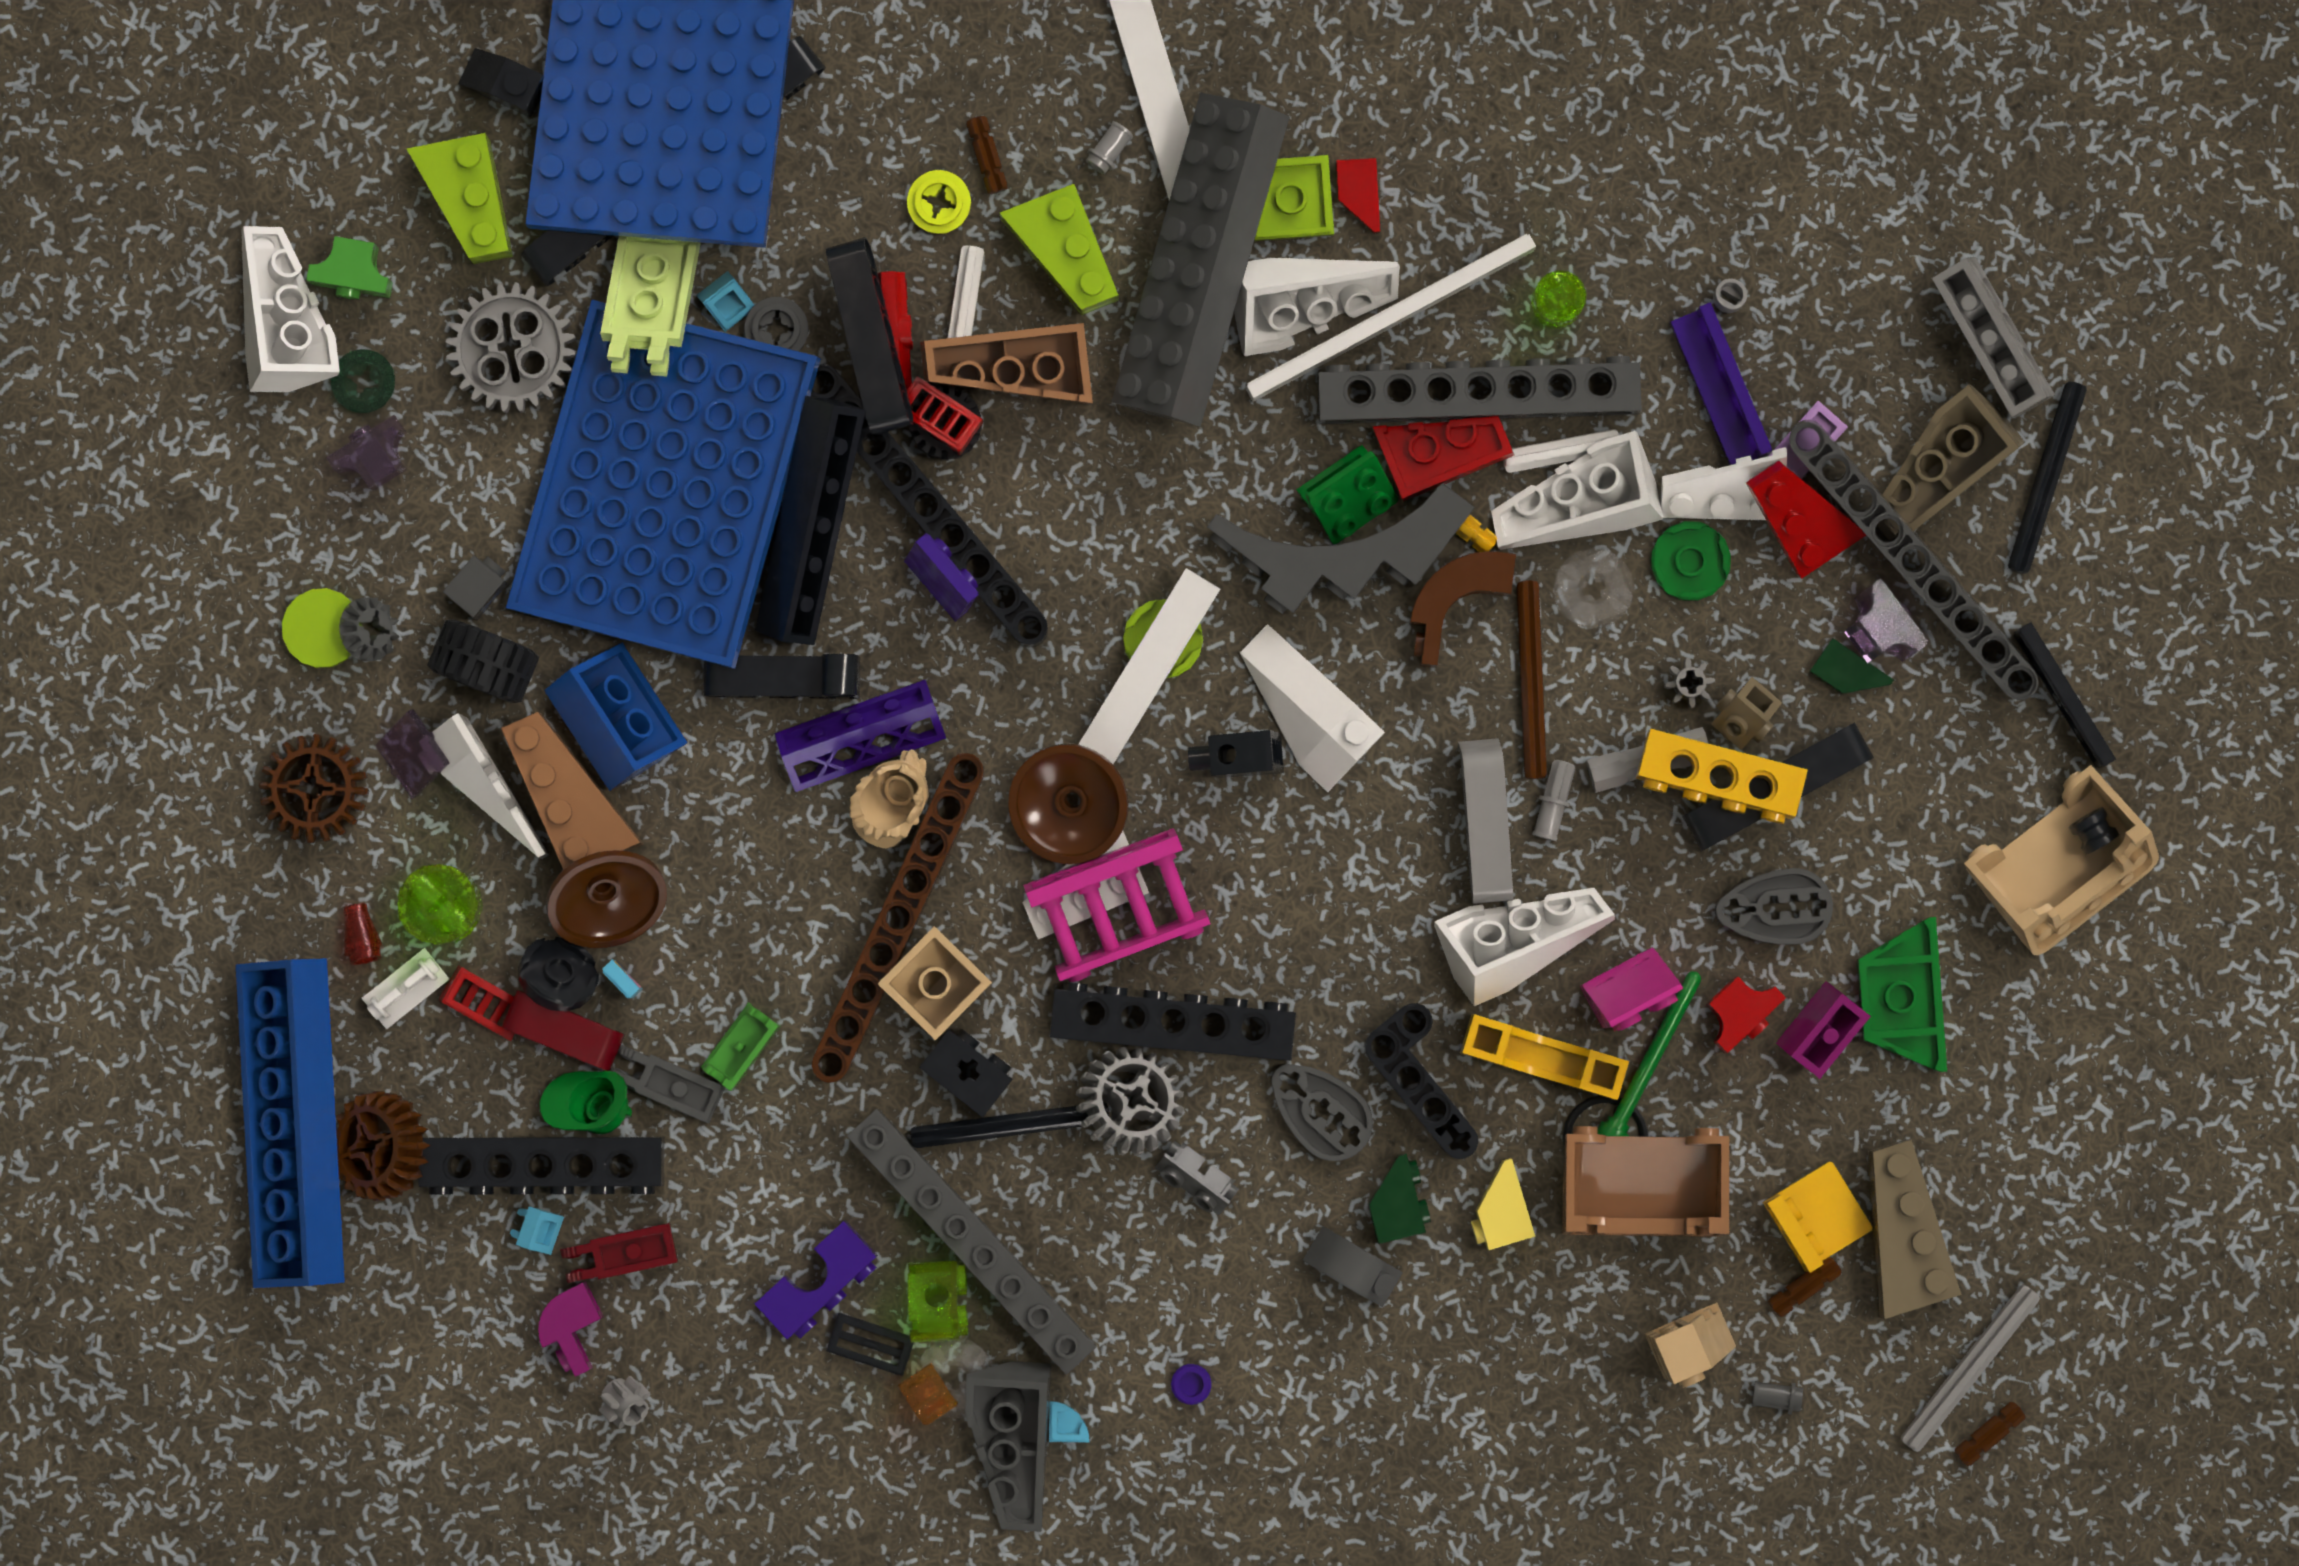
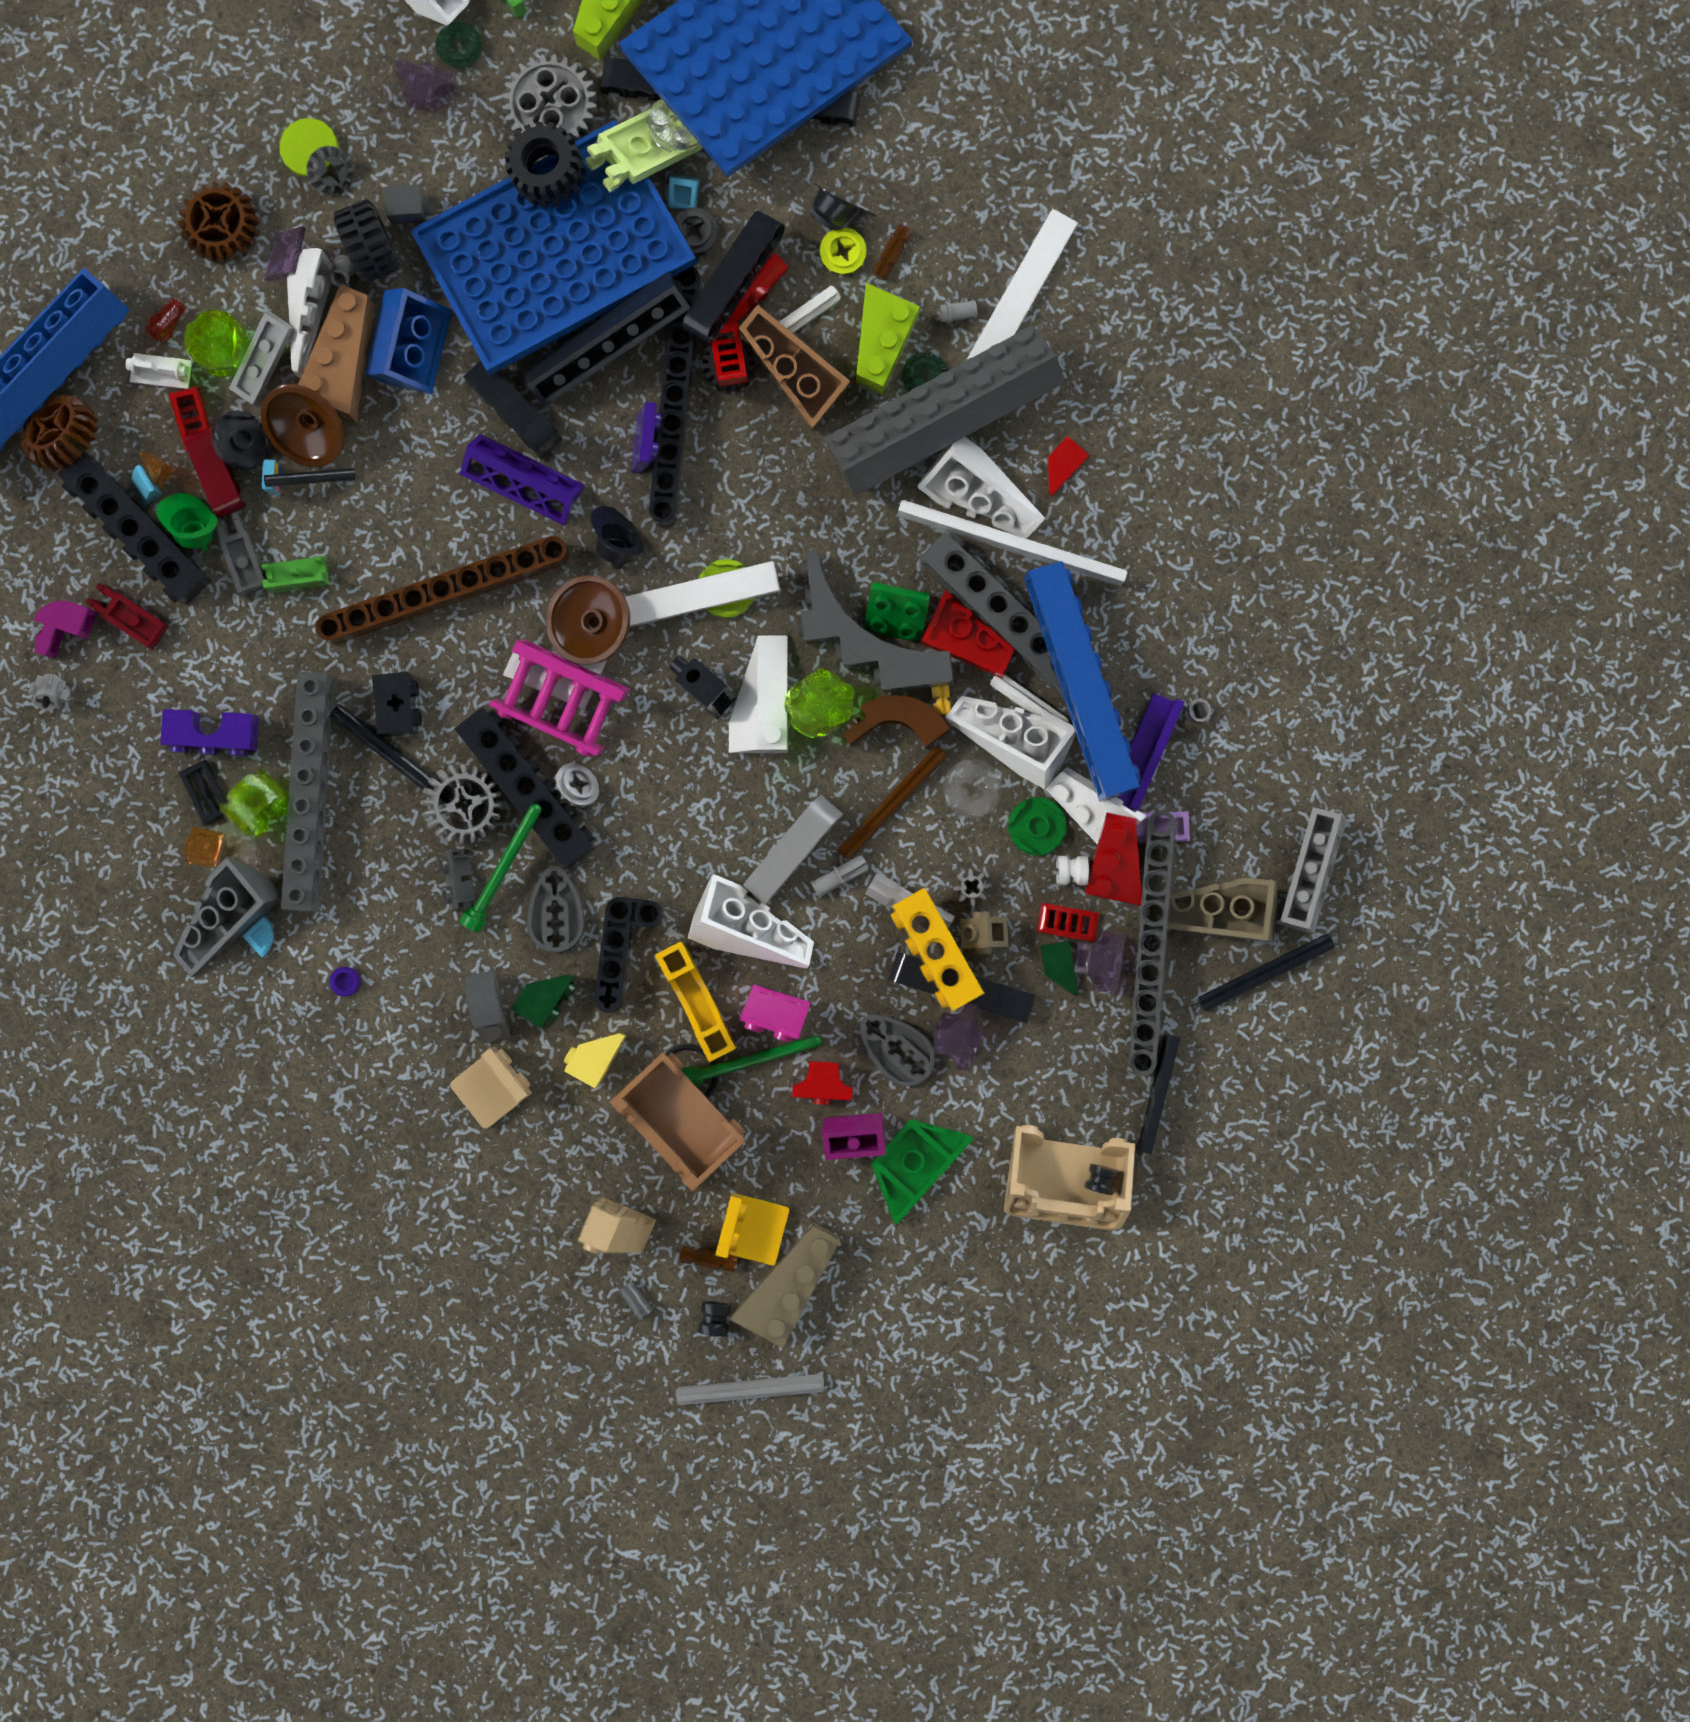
camera: 45 degrees right, 0 degrees up
(479, 710) = (341, 271): none -> light grey pin
(495, 876) = (261, 358): none -> light grey hinge
(503, 1083) = (157, 469): none -> clear orange slope
(506, 1114) = (144, 485): none -> medium azure slope
(538, 1230) = (97, 560): medium azure tile -> none
(547, 404) = (531, 146): none -> black tyre
(655, 266) = (666, 136): none -> clear plate
(660, 942) = (309, 477): none -> black piece
(890, 800) = (500, 525): tan hair -> none
(895, 173) = (834, 212): none -> black piece
(934, 983) = (424, 641): tan slope -> none
(1010, 697) = (616, 536): none -> black piece
(1122, 247) = (913, 368): none -> clear green gear
(1211, 960) = (581, 777): none -> light grey gear
(1252, 1195) = (475, 917): none -> green piece
(1298, 200) = (1025, 434): lime tile -> none
(1369, 657) = (819, 703): none -> clear neon green brick
(1434, 1338) = (491, 1087): none -> tan bracket
(1558, 299) = (1108, 621): clear neon green wheel -> none
(1596, 383) = (1081, 681): none -> blue brick
(1768, 568) = (1072, 870): none -> white wheel
(1788, 643) = (1044, 918): none -> red slope
(1823, 834) = (958, 1036): none -> clear purple brick
(1862, 1329) = (714, 1318): none -> black wheel
(1990, 1433) = (725, 1434): reddish brown axle -> none

